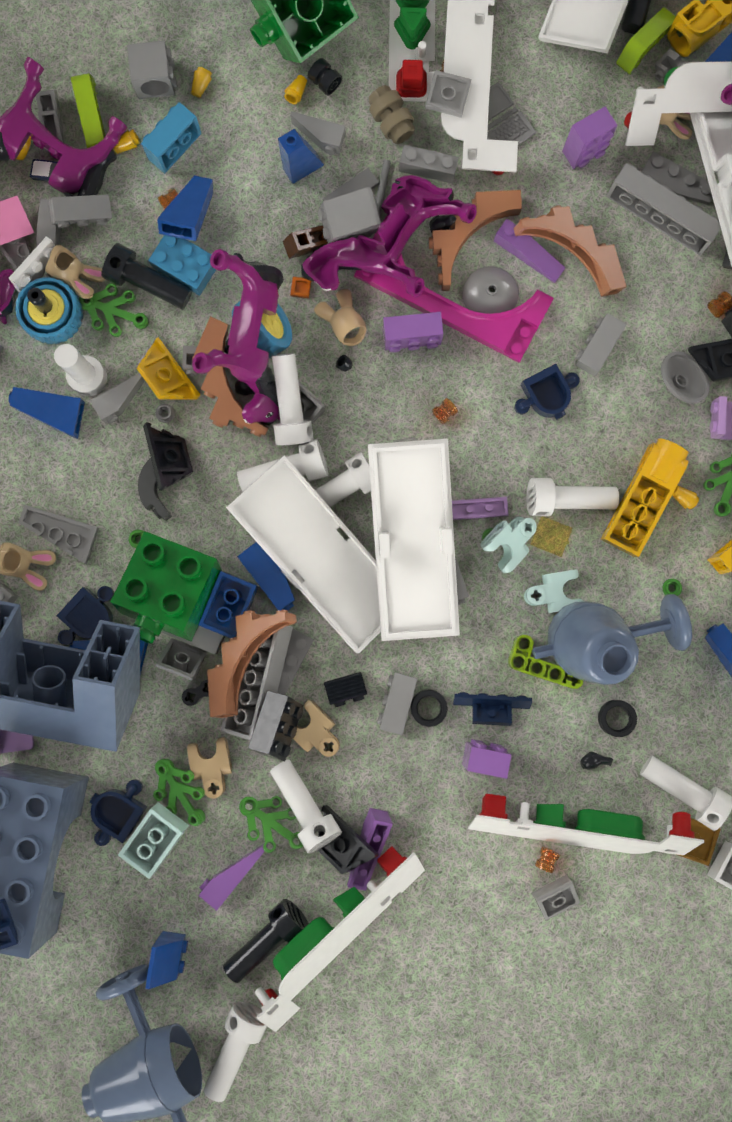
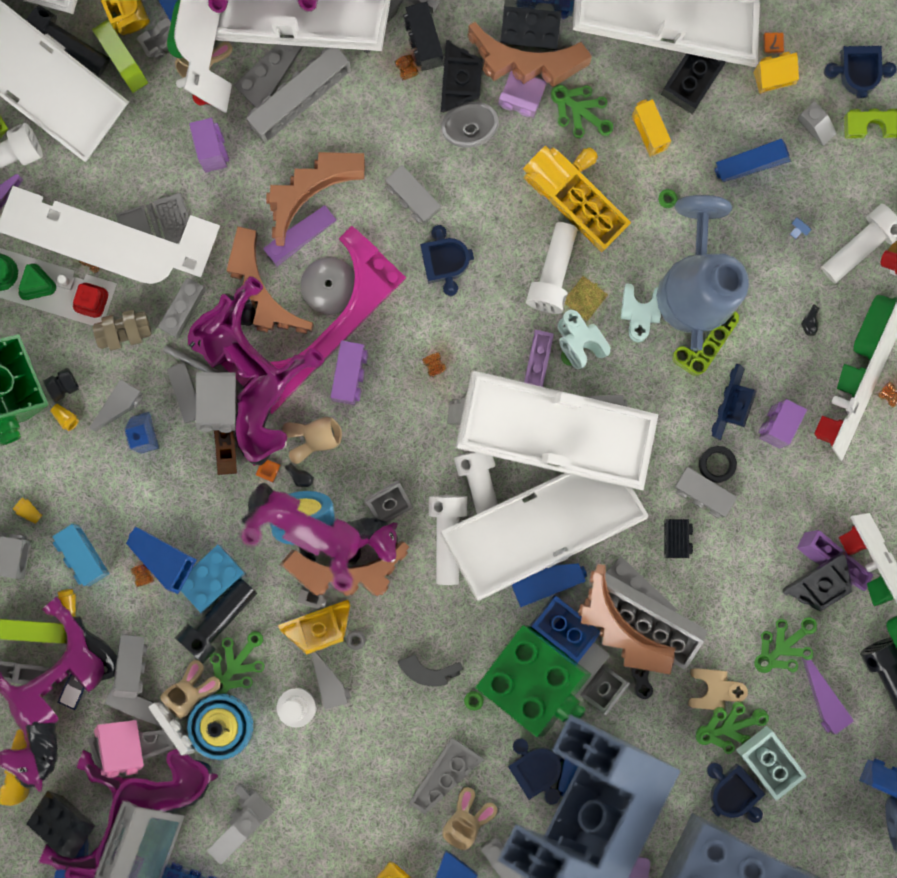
camera: 75 degrees left, 0 degrees up
(54, 410) = (322, 749): blue slope -> none
(168, 456) = (402, 646): black wing -> none
(276, 726) = (696, 613): brick -> none
(292, 426) = (410, 517): white piece -> none
(302, 319) = (300, 477): none -> black animal
(304, 808) = (780, 609): white piece -> none
(317, 731) = (711, 578): tan piece -> none
(344, 363) = (358, 449): black hinge -> none
(448, 93) = (122, 268): light grey tile -> none
(630, 711) = (774, 274): black tyre -> none
(684, 724) = (800, 227): none -> medium blue tile

